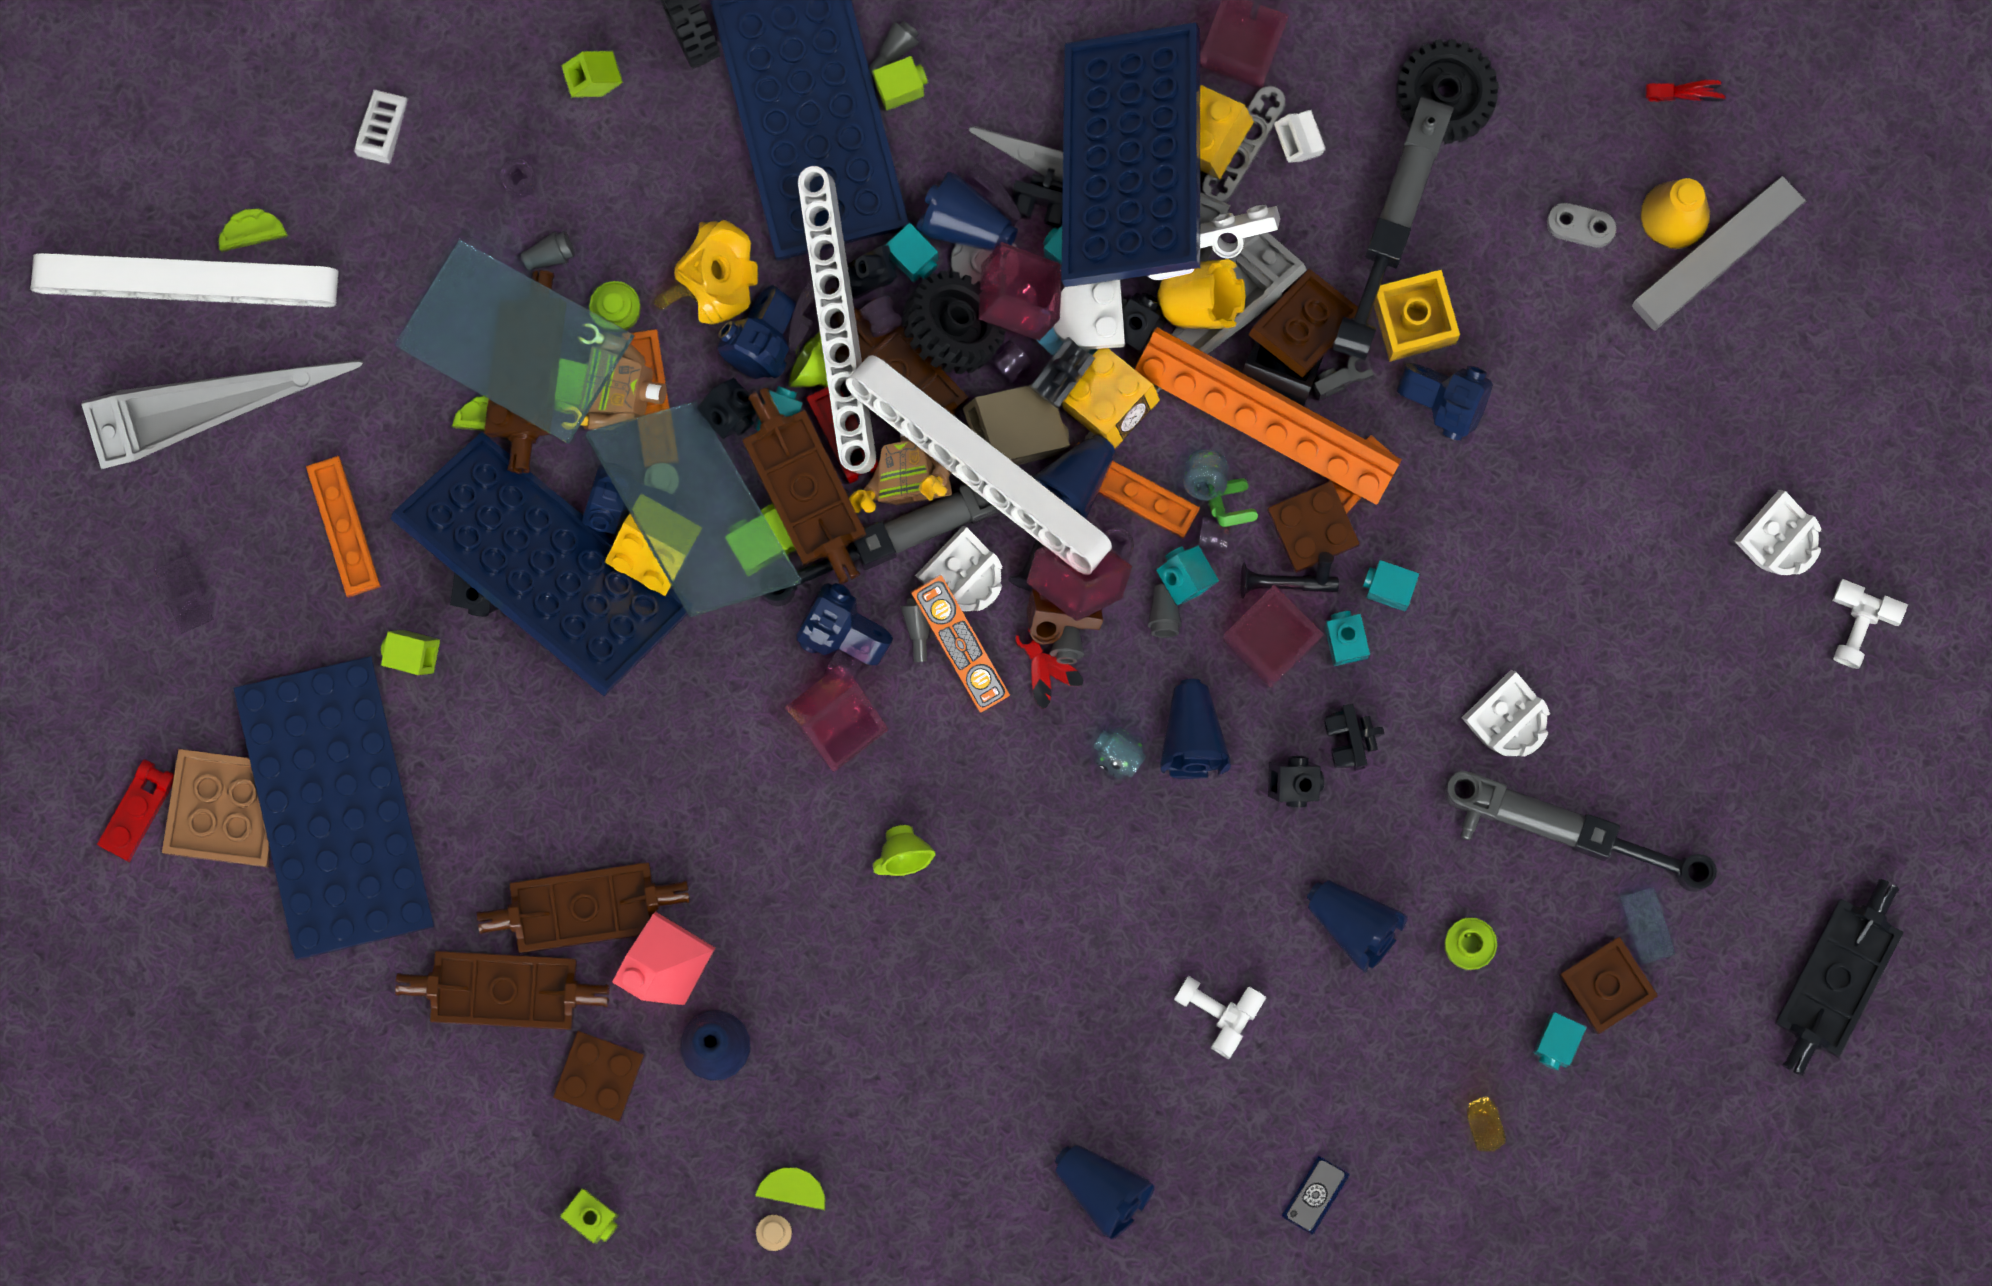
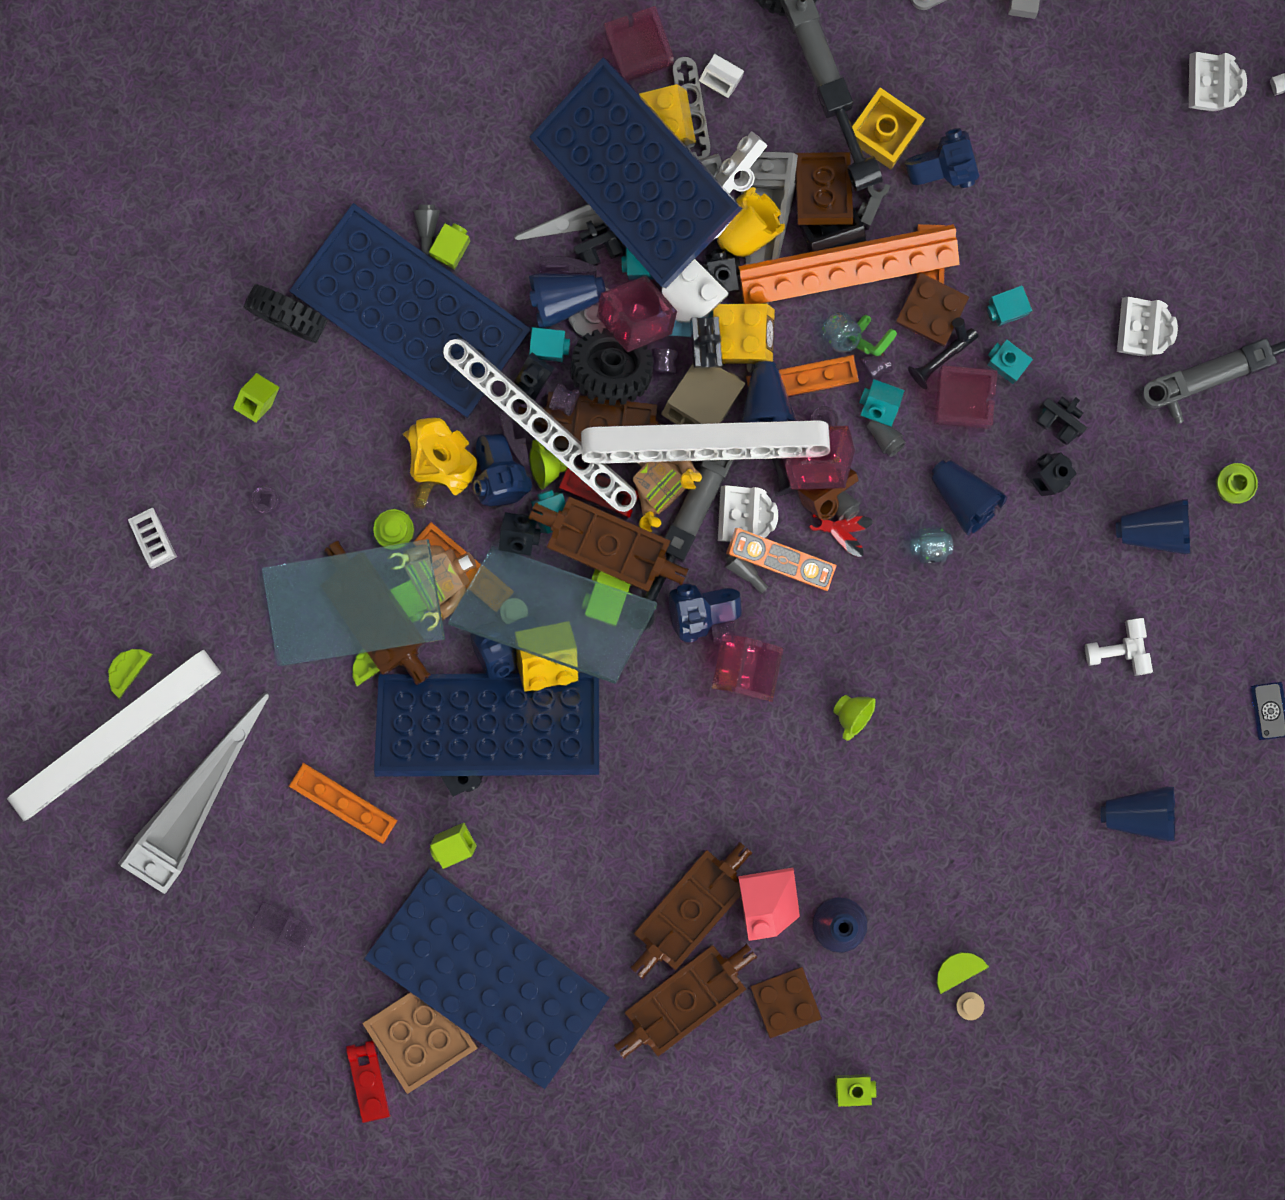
camera: 45 degrees left, 5 degrees up
(550, 251) = (324, 528): dark grey cone -> none

